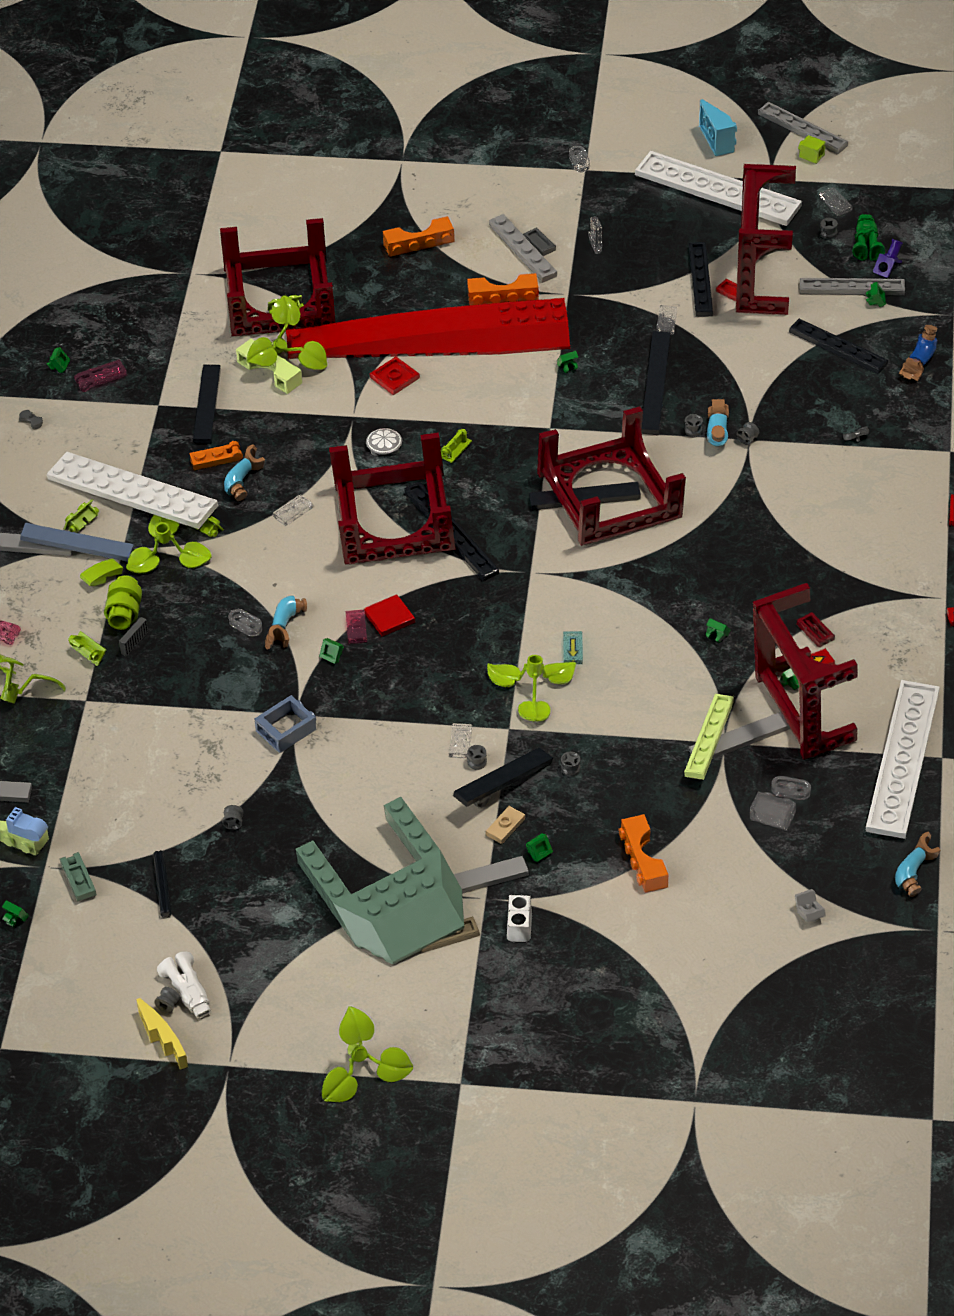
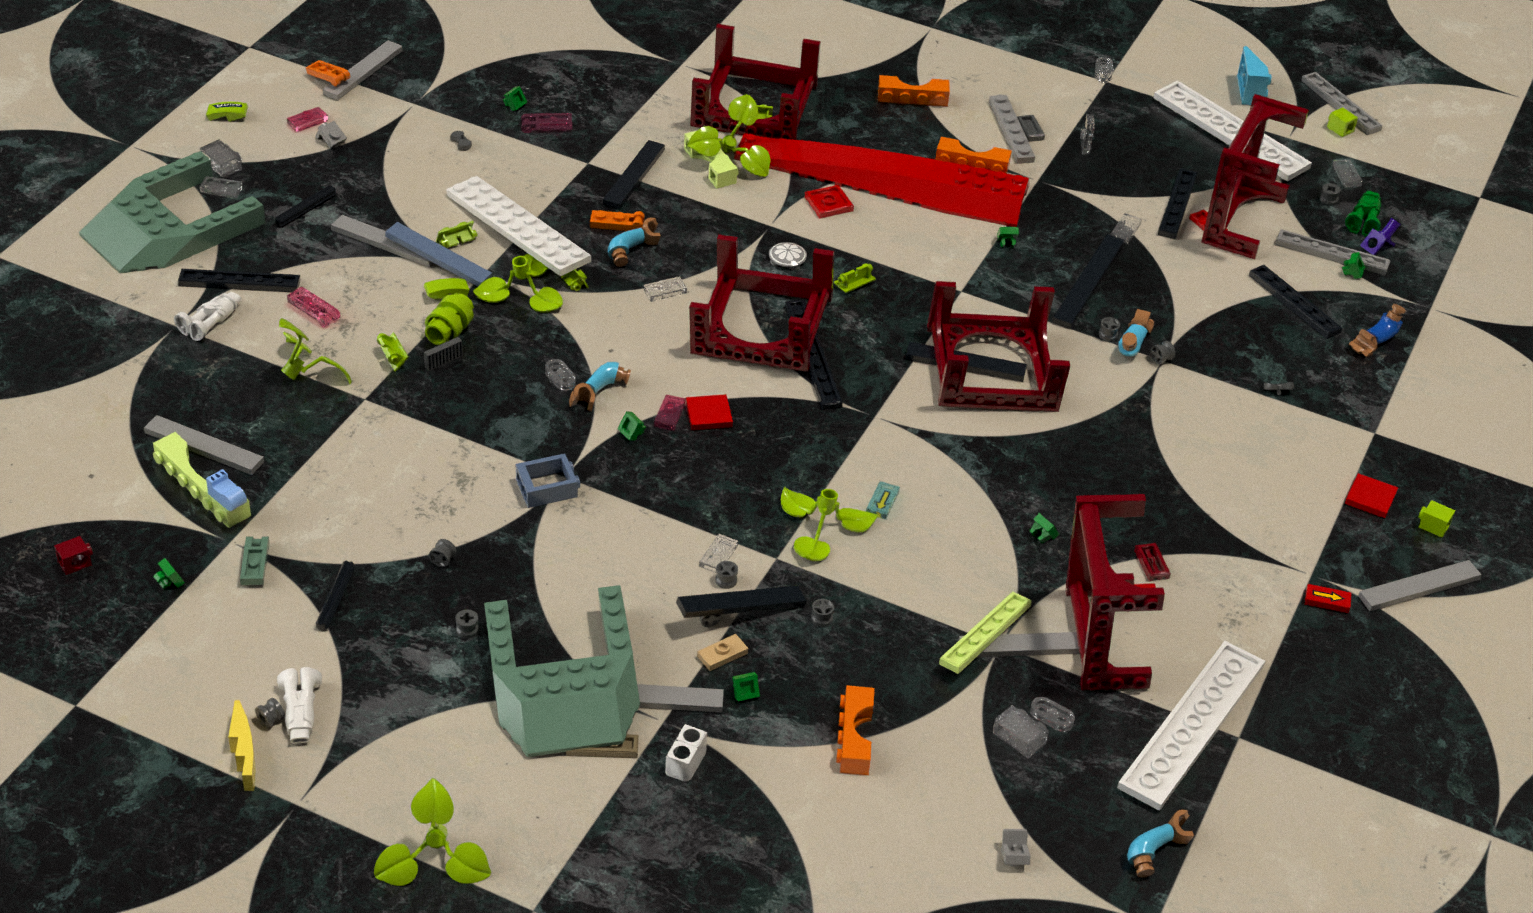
camera: 15 degrees right, 5 degrees down
(284, 876) = (467, 624): none -> dark grey wheel

